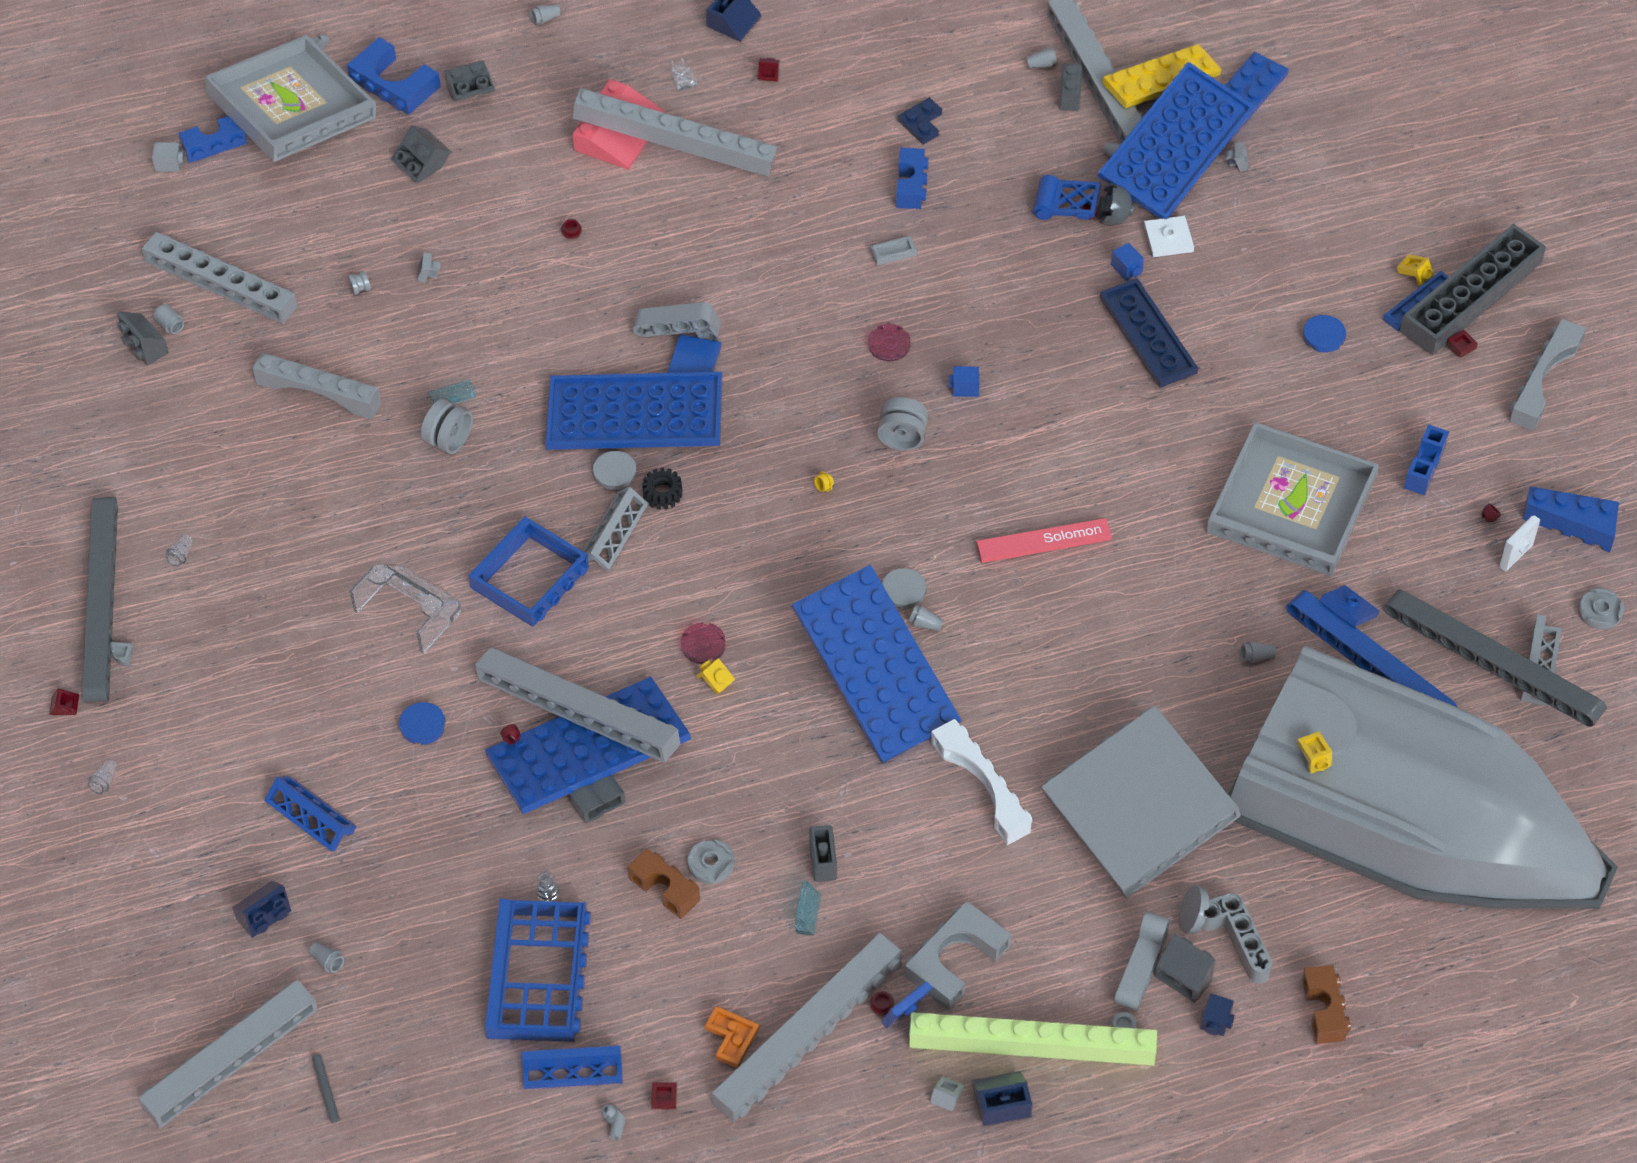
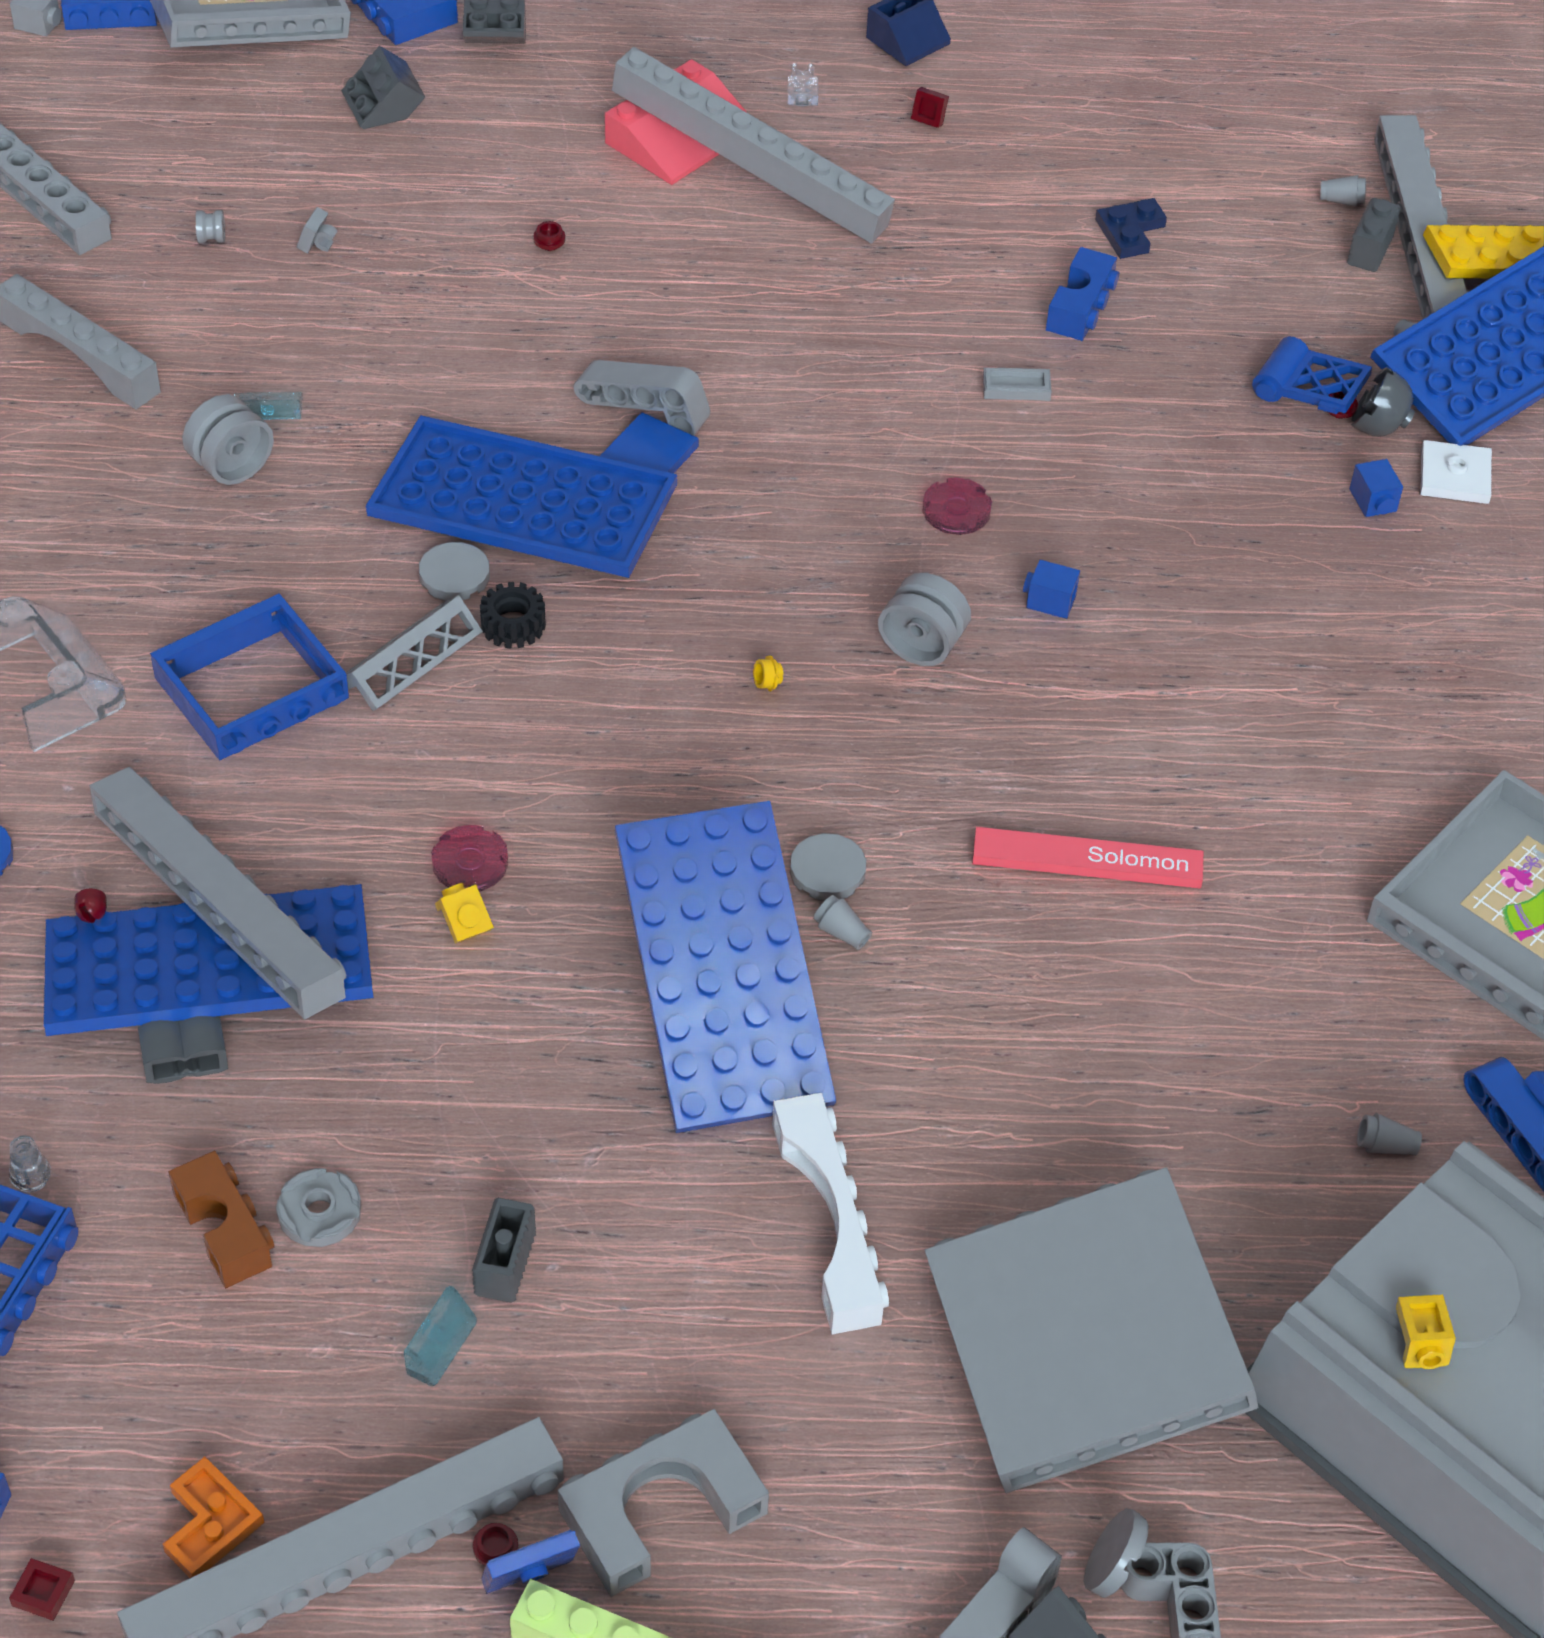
camera: 15 degrees right, 5 degrees down
(1148, 332) = (1375, 598): dark blue plate -> none

